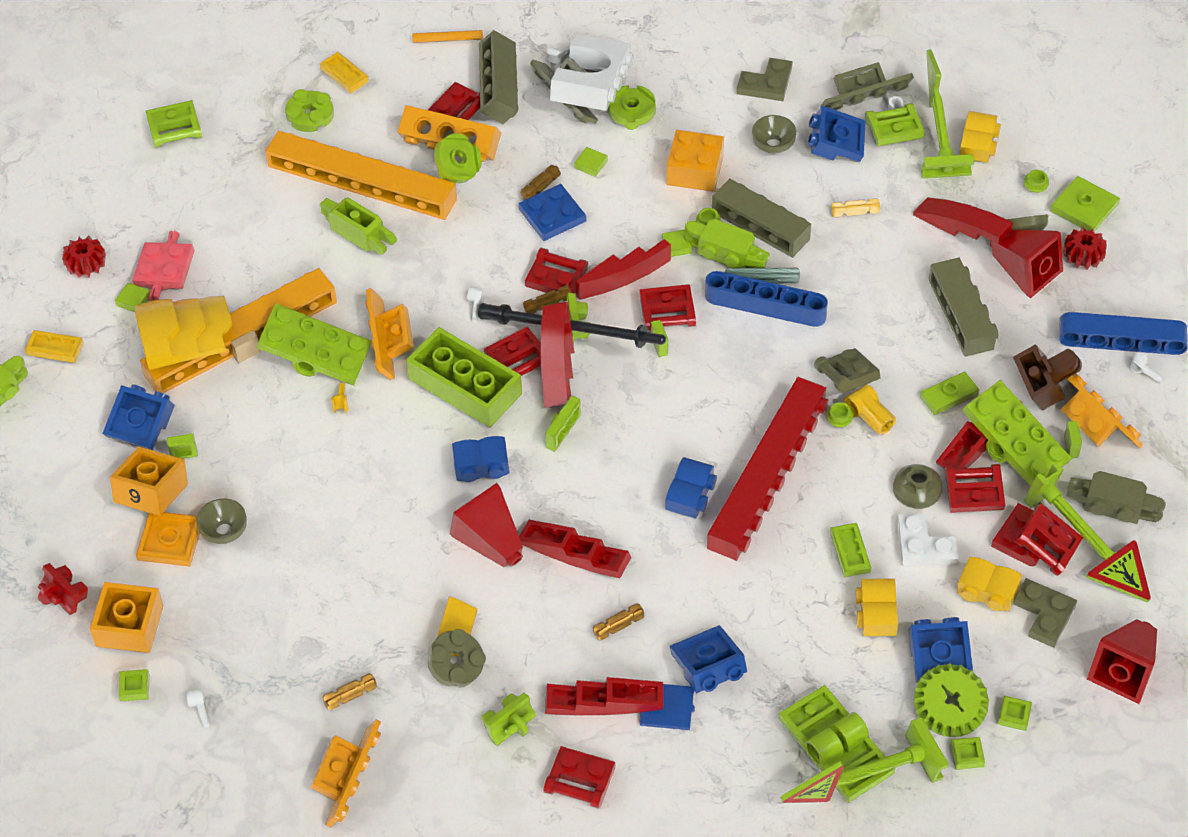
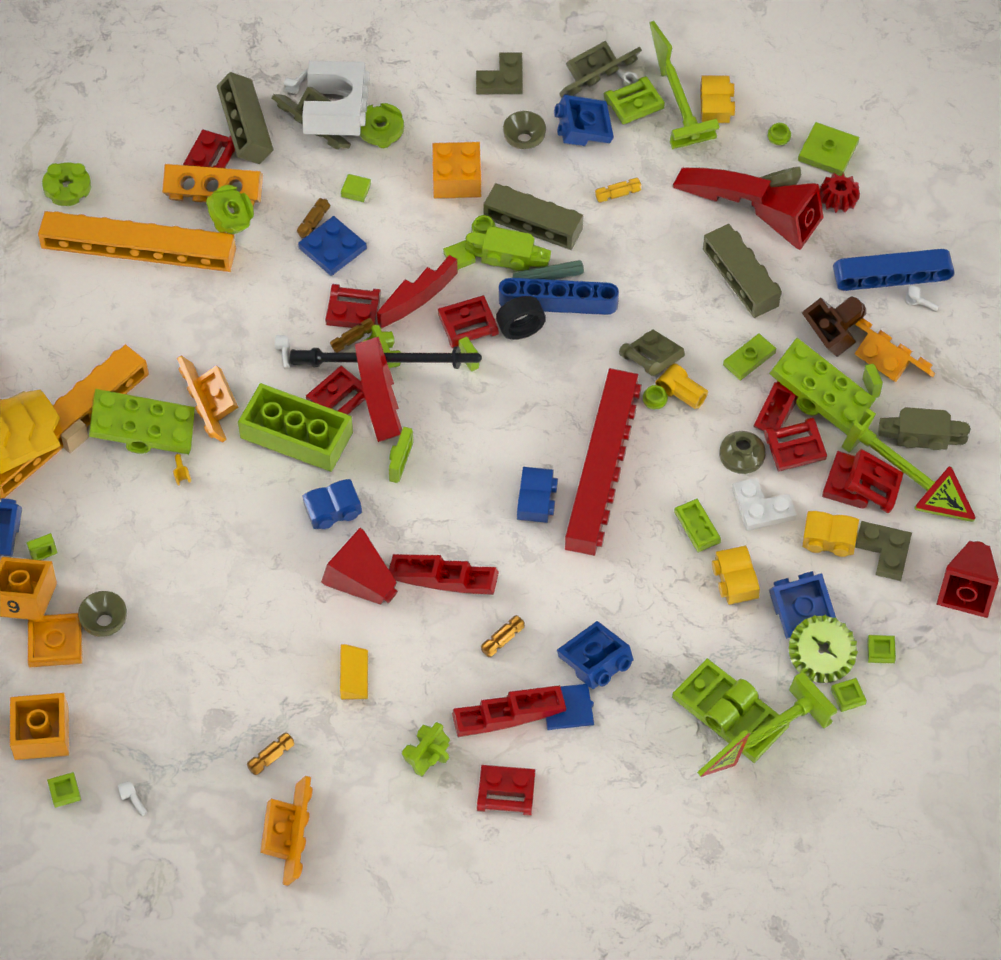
camera: 15 degrees left, 5 degrees up
(344, 72) = (90, 138): yellow plate -> none
(357, 224) = (149, 293): lime hinge -> none
(447, 36) = (180, 83): light orange bar -> none
(458, 643) = (376, 696): olive plate -> none
(716, 300) = (517, 308): none -> black tyre

